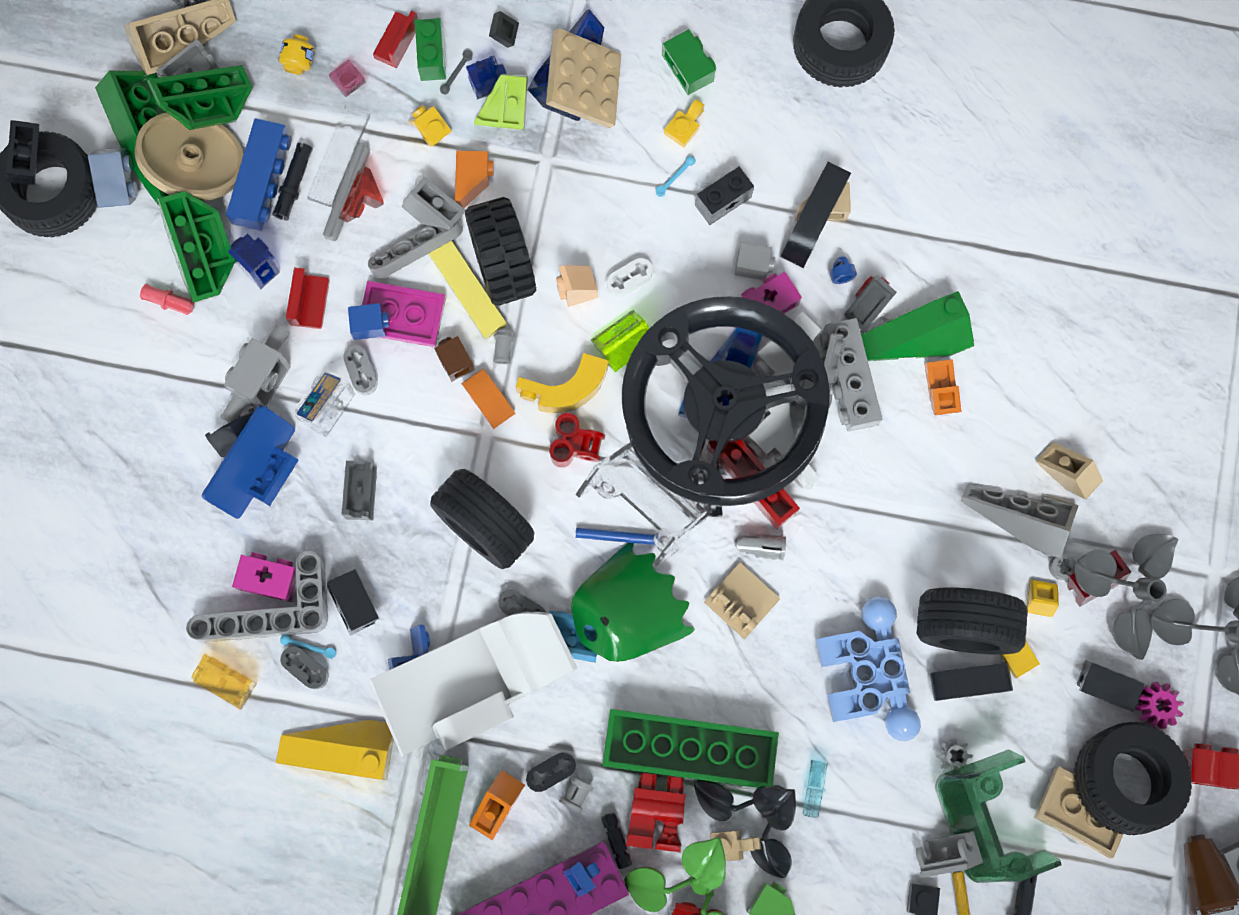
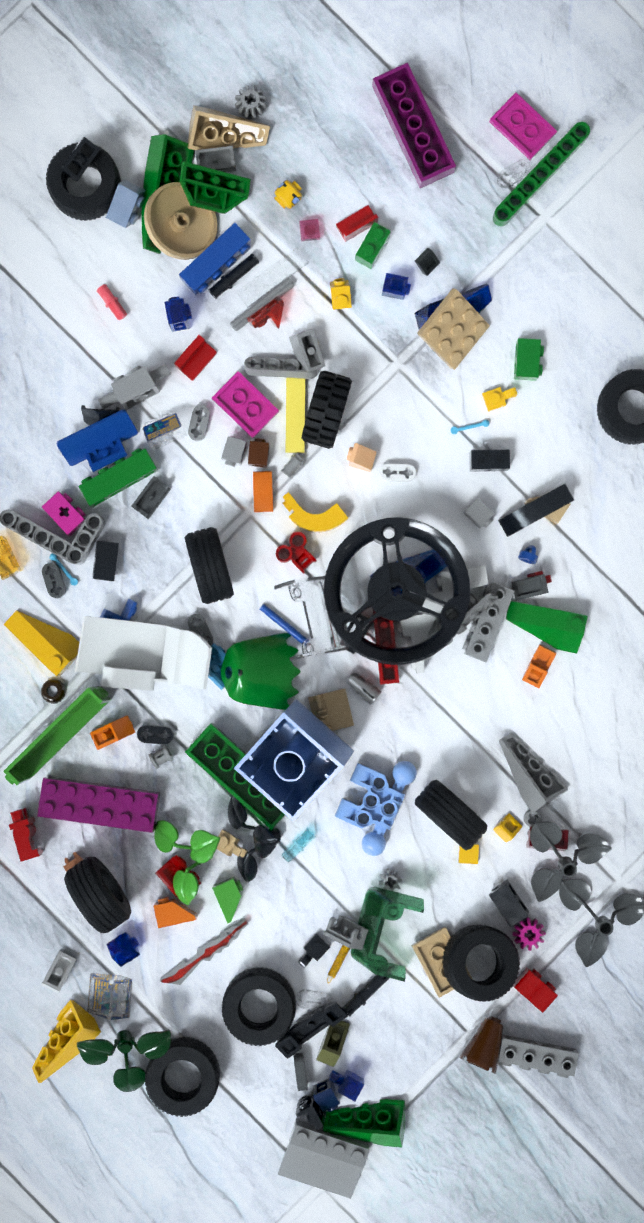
camera: 35 degrees right, 10 degrees up
(197, 244) = (150, 282): green wedge -> none
(304, 493) = (117, 478): none -> green brick
(368, 321) = (221, 398): blue brick -> none
(402, 804) = (61, 691): none -> dark brown piece
(423, 374) = (233, 451): none -> light grey brick
(467, 56) = (394, 262): dark grey hinge -> none
(471, 175) = (344, 345): orange slope -> none
(505, 103) = (395, 312): lime wing -> none
(581, 877) = (131, 806): blue tile -> none
(616, 840) = (166, 797): black axle -> none
(620, 339) = (366, 508): clear neon green panel -> none
(657, 806) = (201, 793): red hips -> none
(744, 679) = (294, 760): none -> medium blue brick
(779, 288) = (482, 539): dark pink brick -> none
(971, 681) = (430, 847): black beam -> none
(1071, 470) = (578, 766): tan slope -> none

